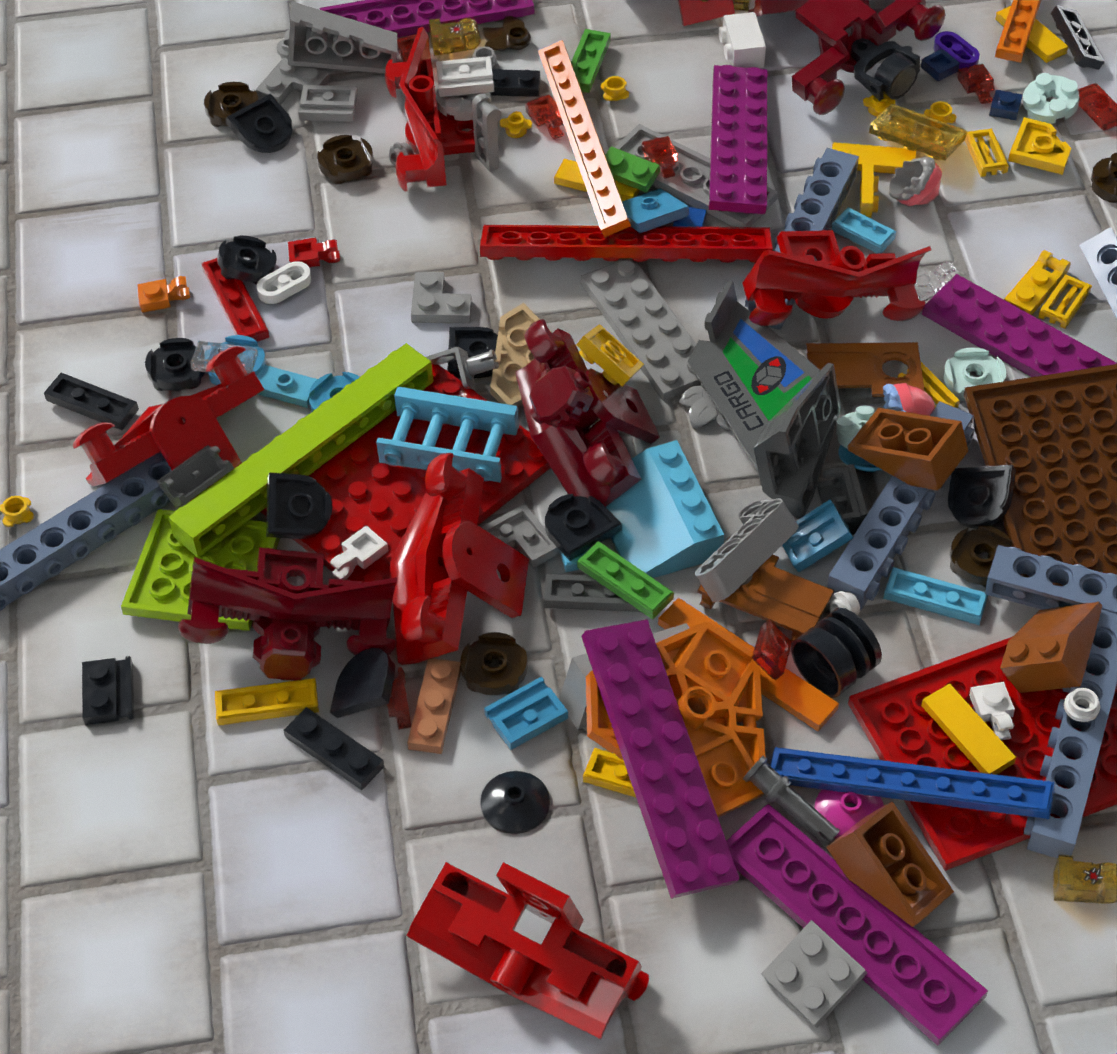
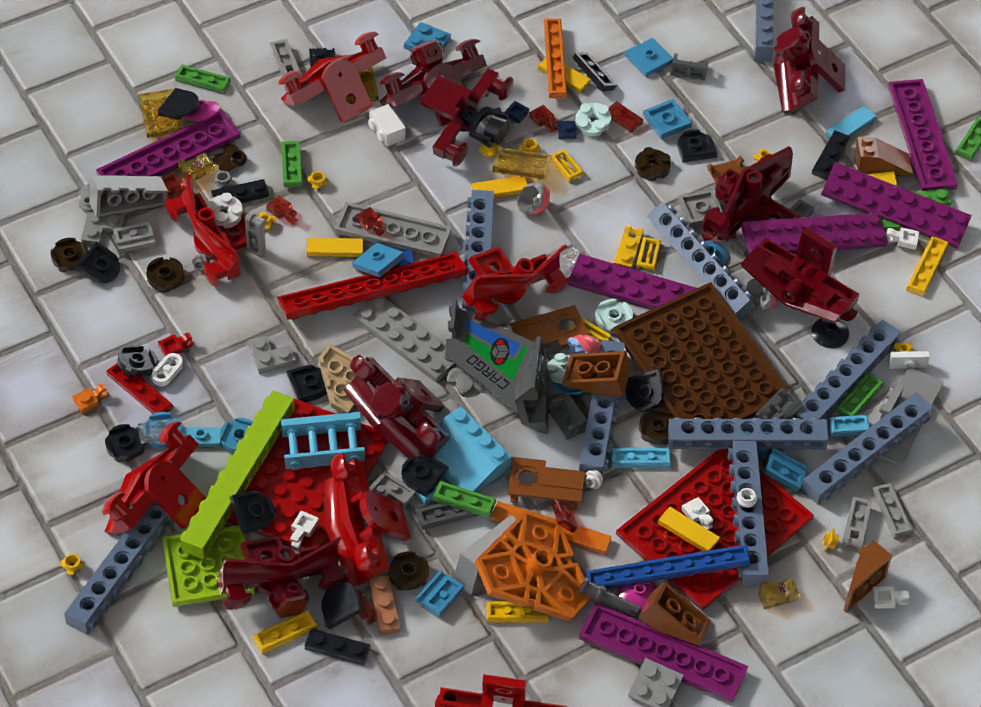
camera: 25 degrees left, 0 degrees up
(91, 401) = (83, 481): black plate -> none
(107, 690) = (186, 654): black plate -> none
(194, 475) = (183, 510): dark grey hinge -> none
(465, 76) = (224, 198): white plate -> none
(467, 366) = (313, 393): light grey bracket -> none
(516, 814) = (454, 652): black dish -> none
(584, 139) = (317, 221): plate -> none
(610, 355) = (398, 363): yellow plate -> none
(632, 169) = (353, 235): bright green plate -> none
(660, 759) = (531, 594): magenta plate -> none
(738, 140) = (413, 196): magenta plate -> none
(764, 530) = (534, 447): light grey beam -> none
(817, 536) = (561, 442): dark azure plate -> none
(836, 652) = (601, 507): black wheel -> none
(863, 230) = (513, 239): medium azure plate -> none
(868, 186) = (505, 210): yellow plate -> none
(957, 48) = (524, 98): dark purple plate -> none
(1039, 147) = (598, 155): yellow plate -> none
(1052, 648) = (718, 470): dark orange slope -> none

